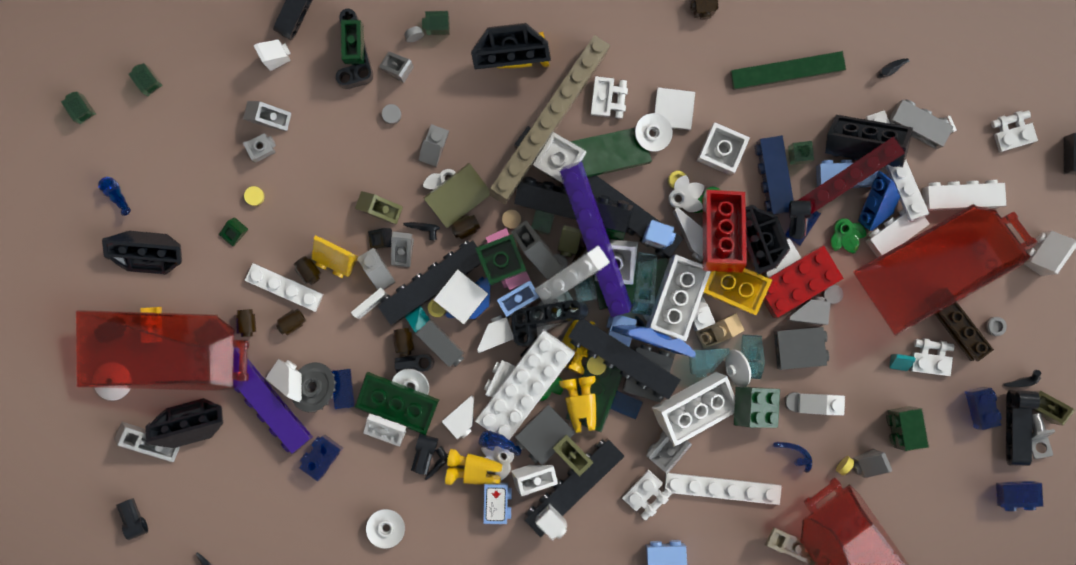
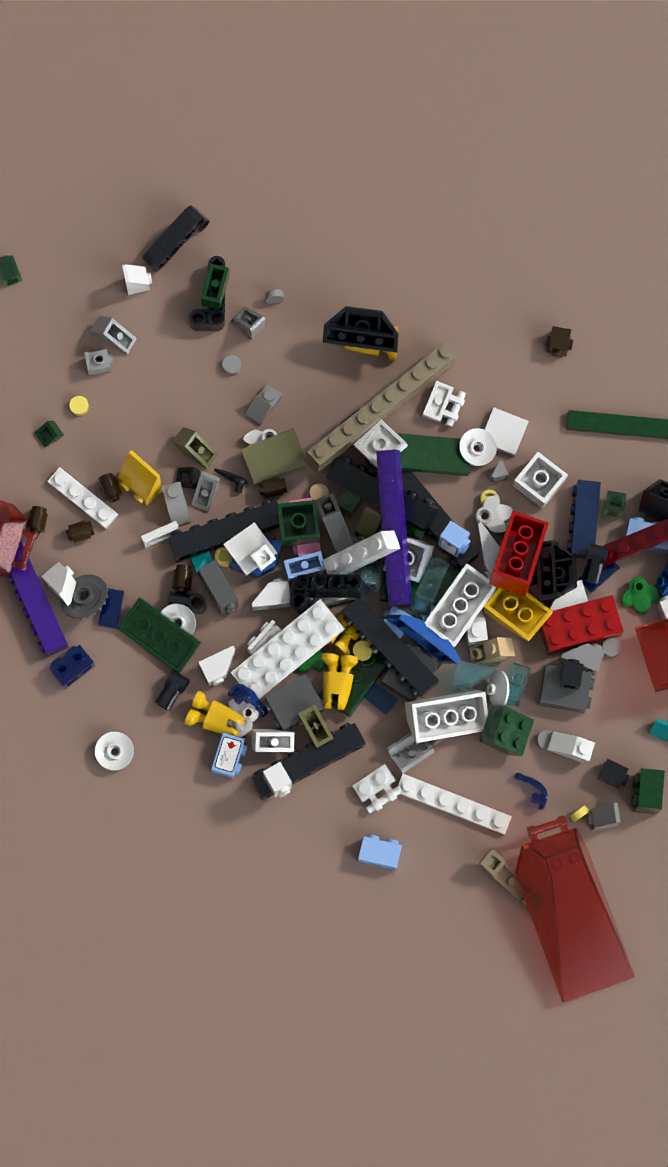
camera: 20 degrees right, 10 degrees down
(384, 430) = (141, 655): white bracket -> none
(436, 23) = (299, 292): clear green brick -> none
(439, 463) = (184, 704): black bar -> none
(475, 303) = (262, 556): none -> white tile
(680, 151) = (500, 472): none -> light grey slope
(806, 337) = (571, 674): none -> black brick
(868, 418) = (614, 774): none -> black brick

